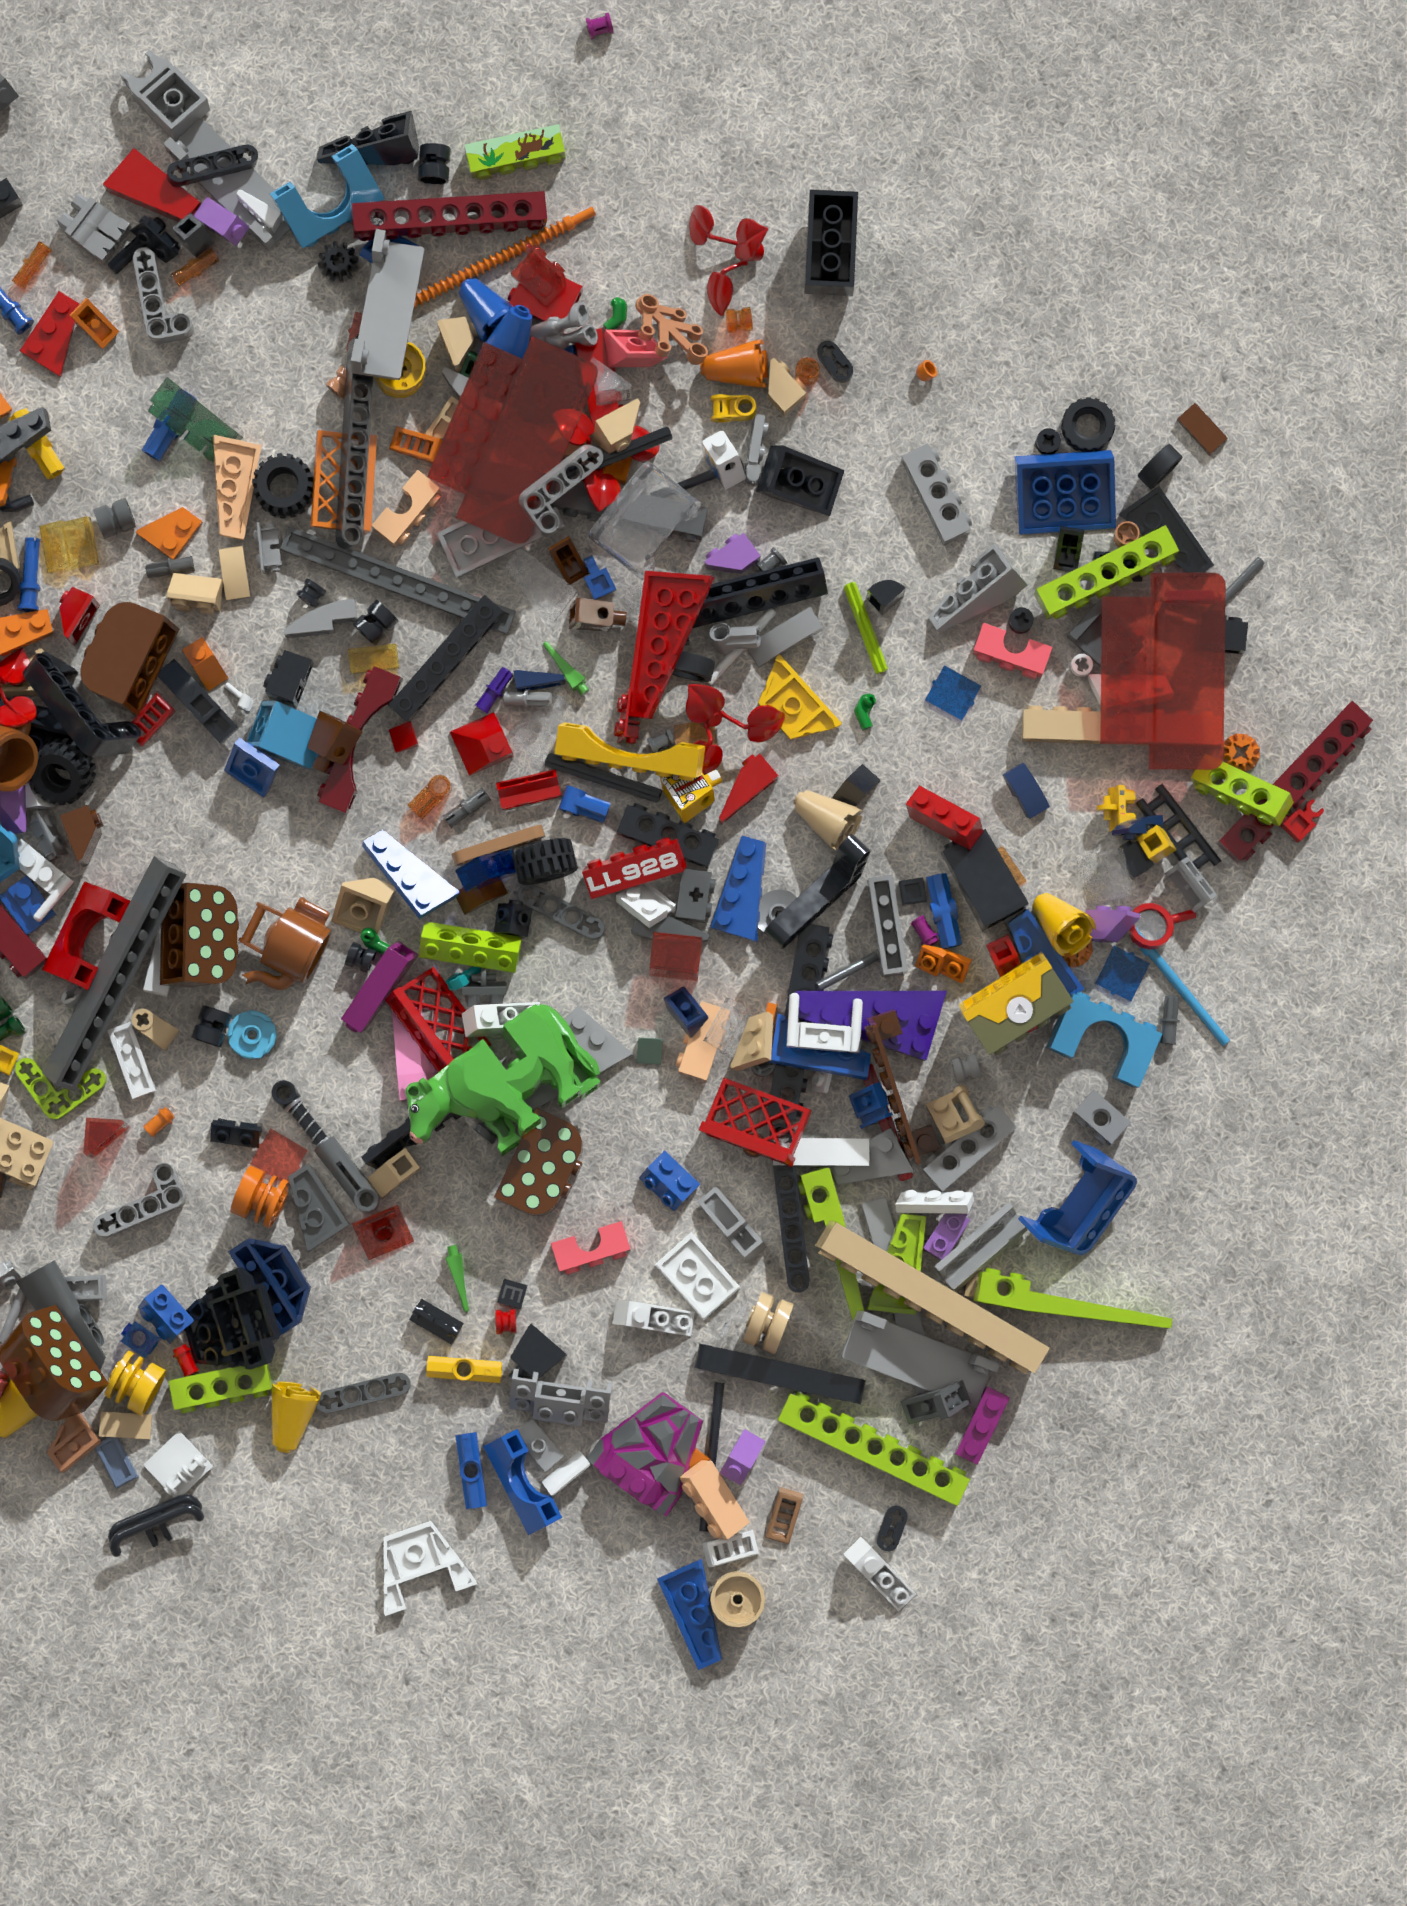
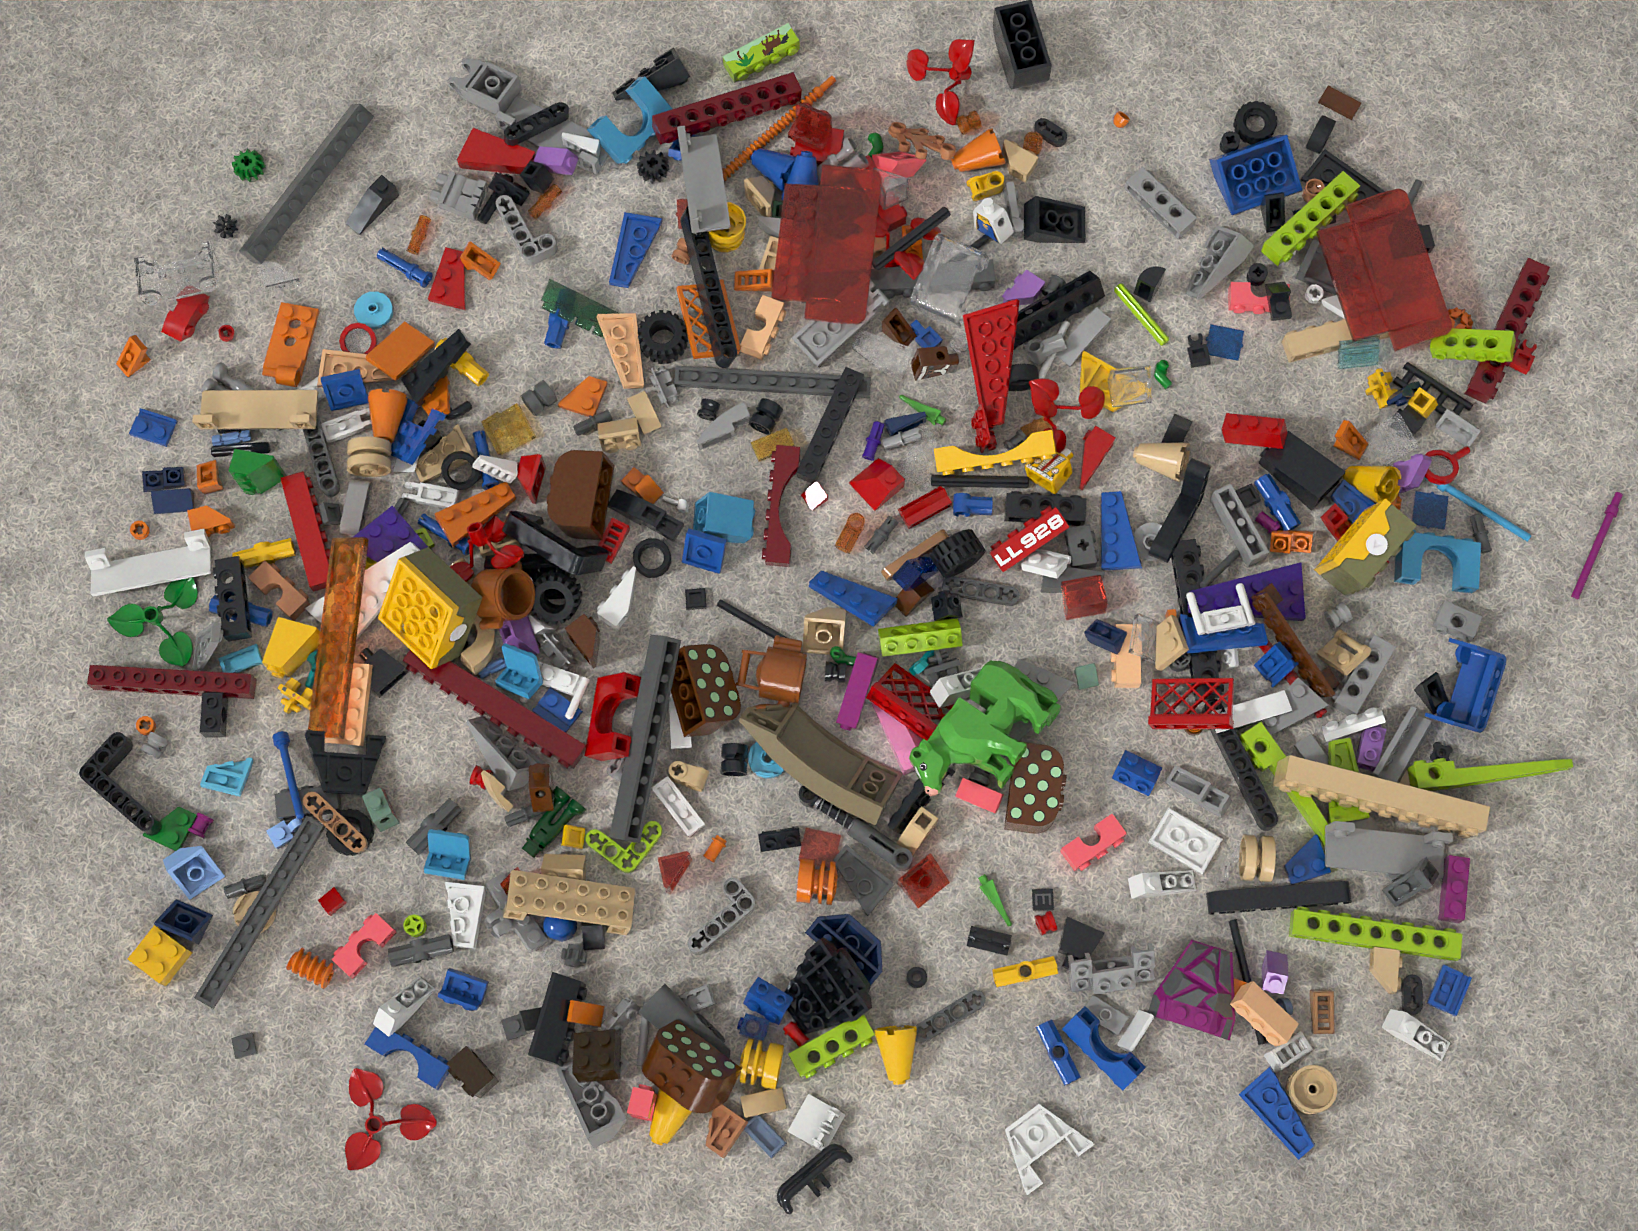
camera: 15 degrees left, 10 degrees down
(40, 593) = (499, 468): none -> white slope
(135, 801) = (618, 605): none -> white slope
(187, 737) = (647, 543): none -> black tyre
(226, 819) = (695, 599): none -> black tile
(284, 356) = (633, 243): none -> blue wing
(284, 867) = (748, 619): none -> black bar
(289, 679) = (711, 475): black brick -> none
(310, 1058) = (822, 760): none -> dark tan slope
(332, 740) = (762, 509): reddish brown torso -> none
(349, 1338) = (916, 970): none -> black plate
(434, 161) = (703, 77): black wheel -> none
(478, 1152) = (979, 795): none -> coral slope
(563, 484) = (879, 265): light grey beam -> none
(616, 428) = (906, 216): tan slope -> none
(742, 1497) = (1285, 1004): none -> sand blue plate
(816, 719) = (1130, 386): none -> clear slope
(826, 1343) = (1307, 863): none -> blue wing
(871, 1488) = (1385, 968): none -> tan slope
(915, 698) = (1197, 352): none -> black plate
(935, 1536) = (1449, 990): none -> blue plate
(1026, 790) = (1310, 397): dark blue slope -> none
(1030, 664) = (1278, 300): none -> black slope
(1034, 1264) = (1447, 750): none -> black plate
(1041, 1192) = (1432, 692): none -> black slope
(1057, 861) = (1350, 440): none -> orange slope
(1105, 758) = (1358, 353): none -> clear light blue plate
(1335, 1040) = (1611, 512): none -> magenta bar

